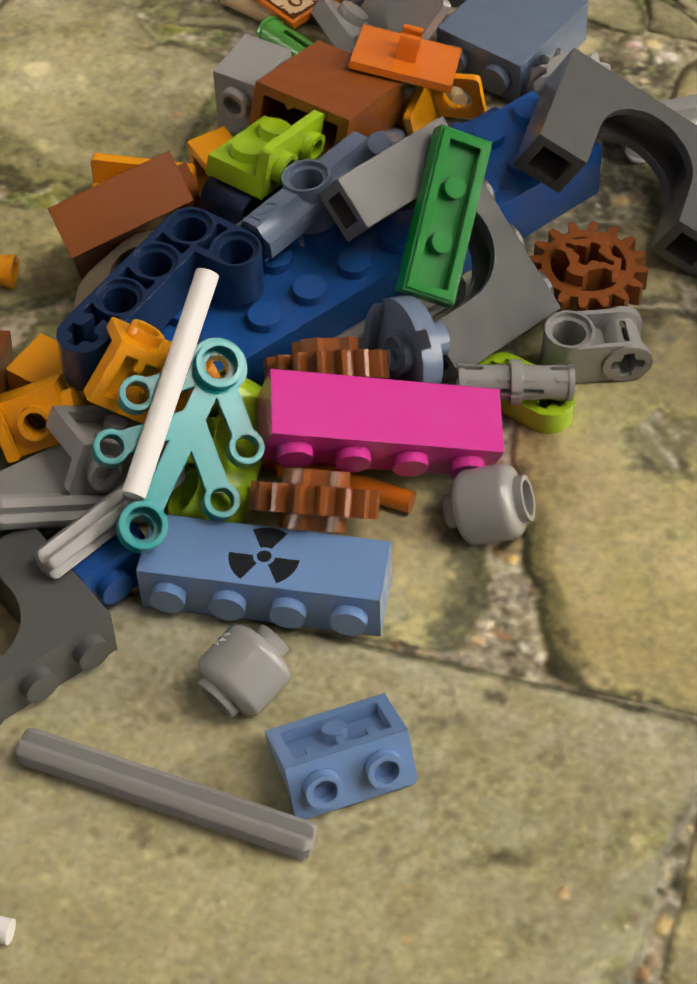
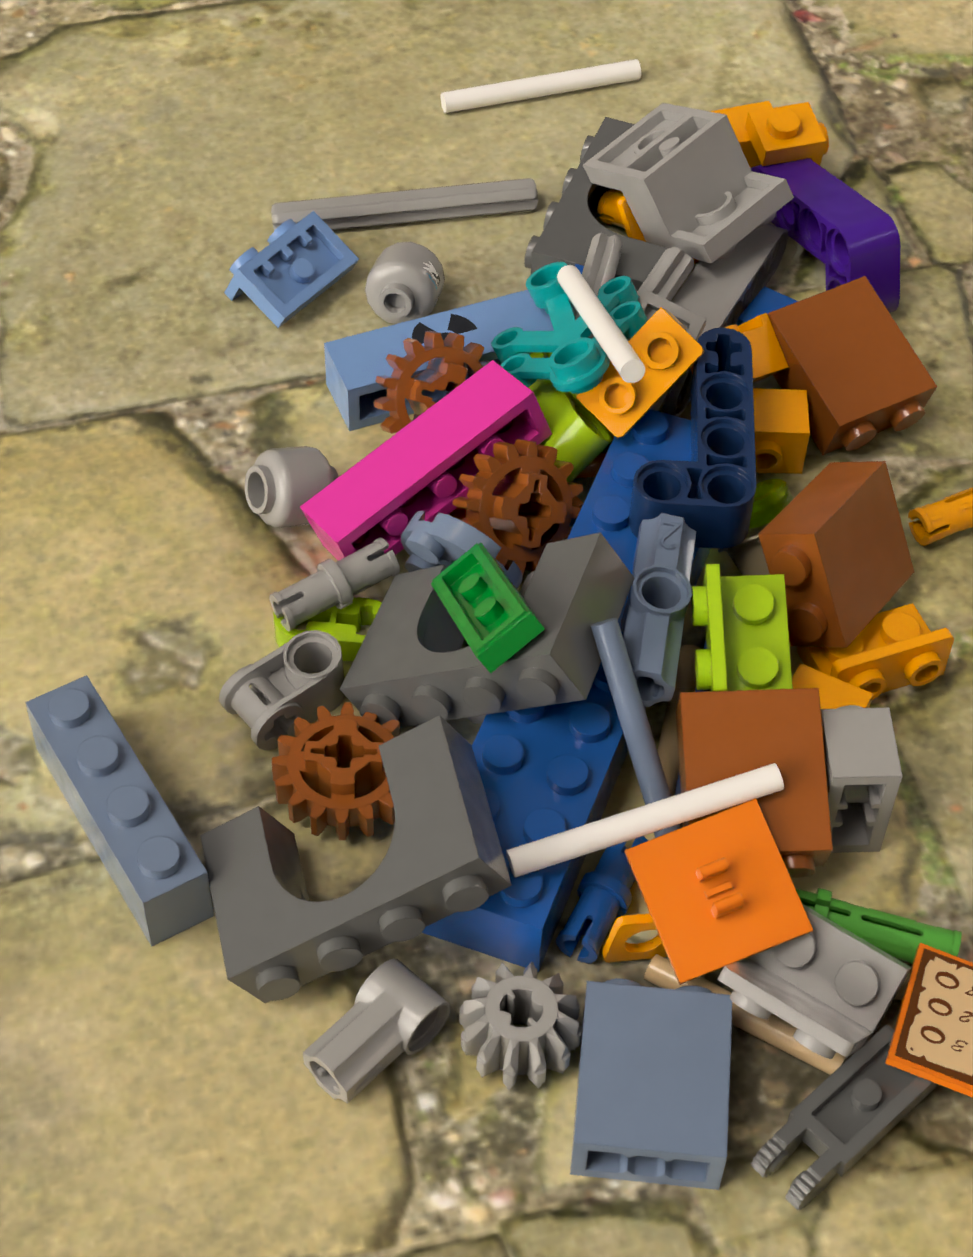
camera: 145 degrees right, 0 degrees up
(429, 83) = (644, 820): none -> white bar

